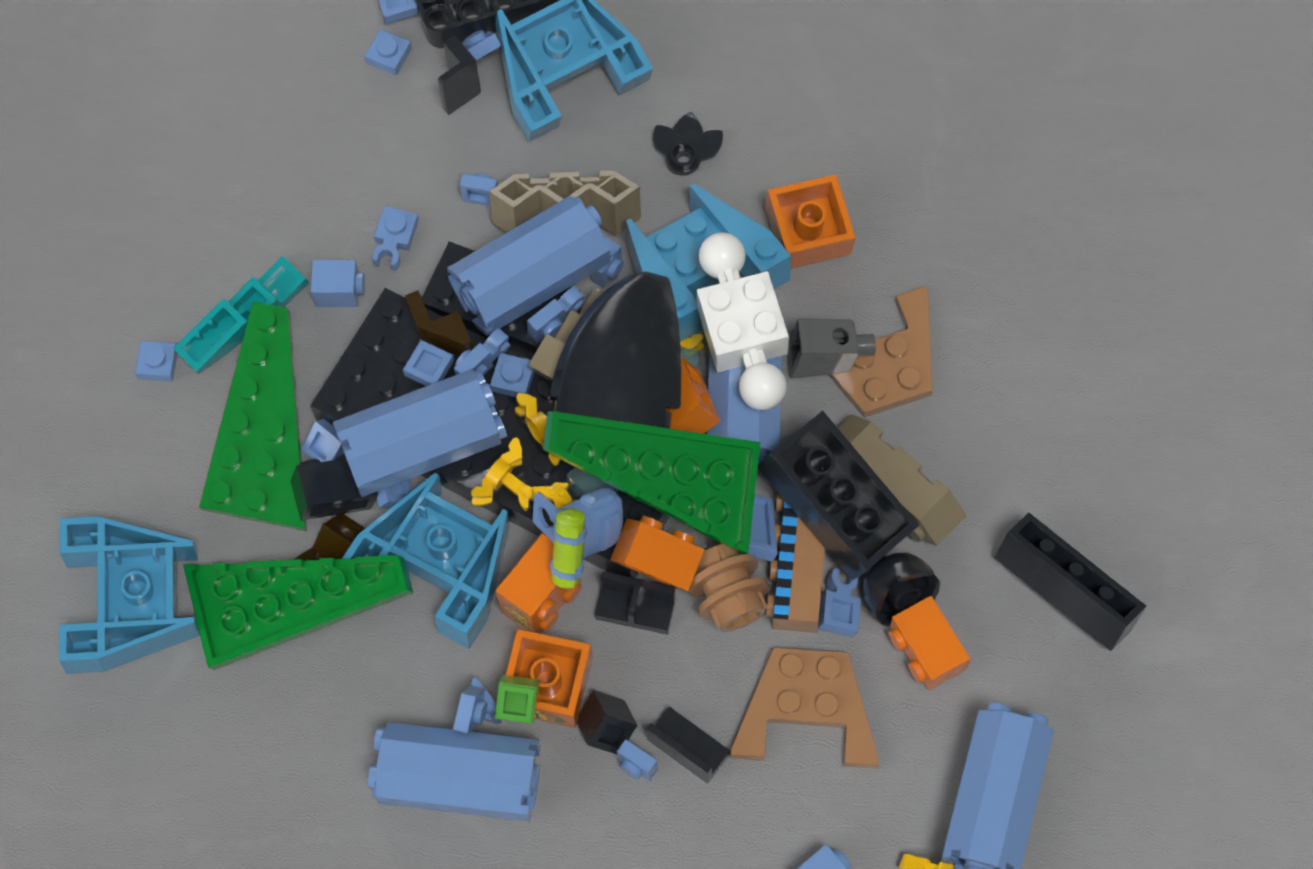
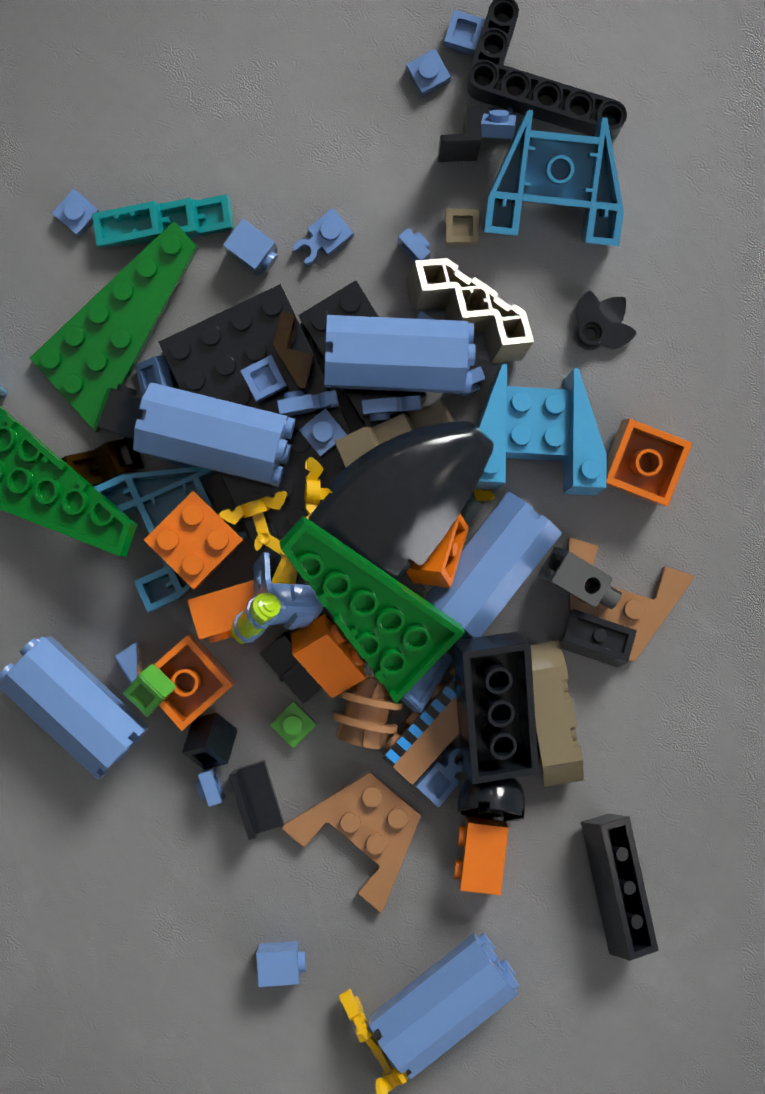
camera: 30 degrees right, 20 degrees up
(465, 537) = (194, 540): none -> orange brick
(470, 710) = (111, 672): medium blue plate -> none
(508, 148) = (462, 227): none -> dark tan plate
(672, 657) = (293, 724): none -> bright green plate
(742, 321) = (523, 525): white brick -> none
(885, 391) = (597, 638): none -> black panel

